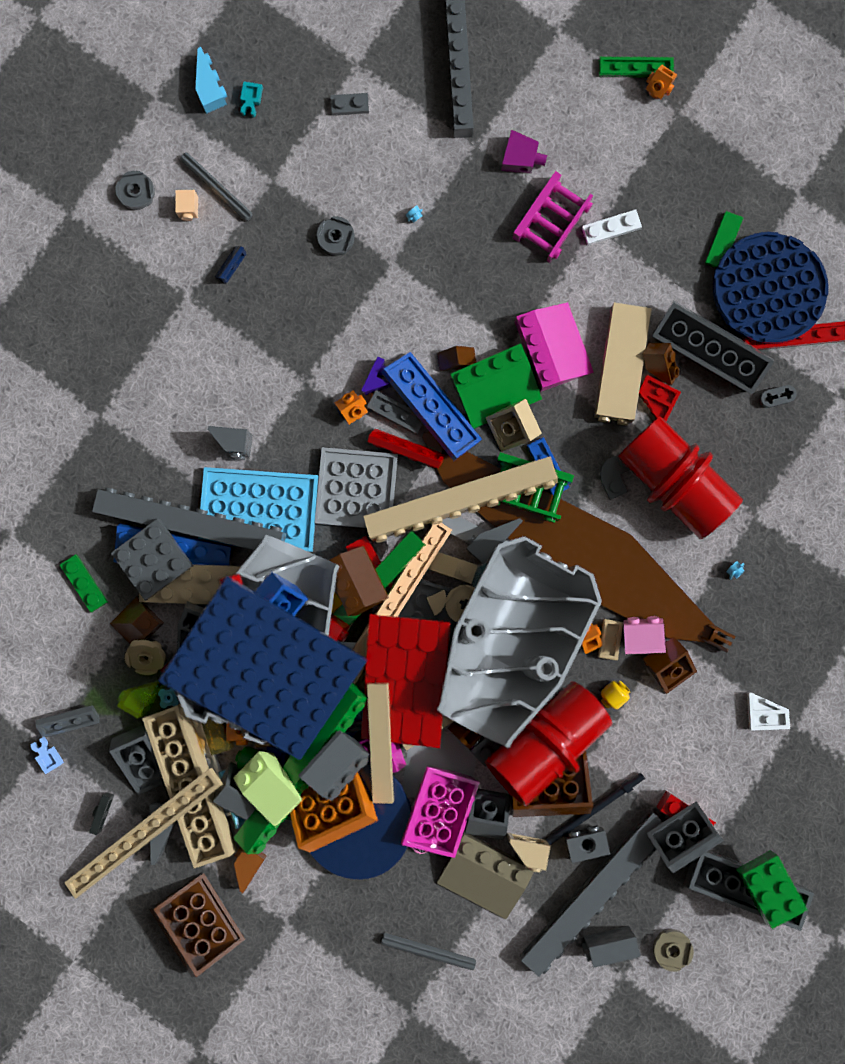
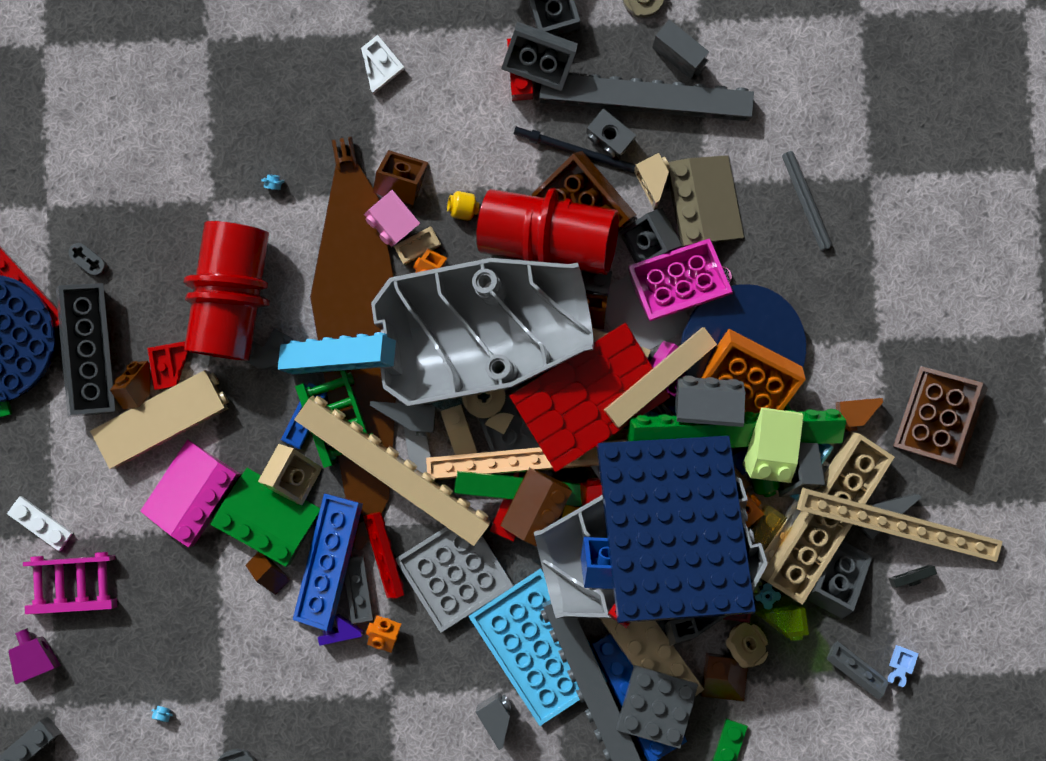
camera: 125 degrees left, 0 degrees up
(573, 523) = (337, 354): none -> medium azure brick

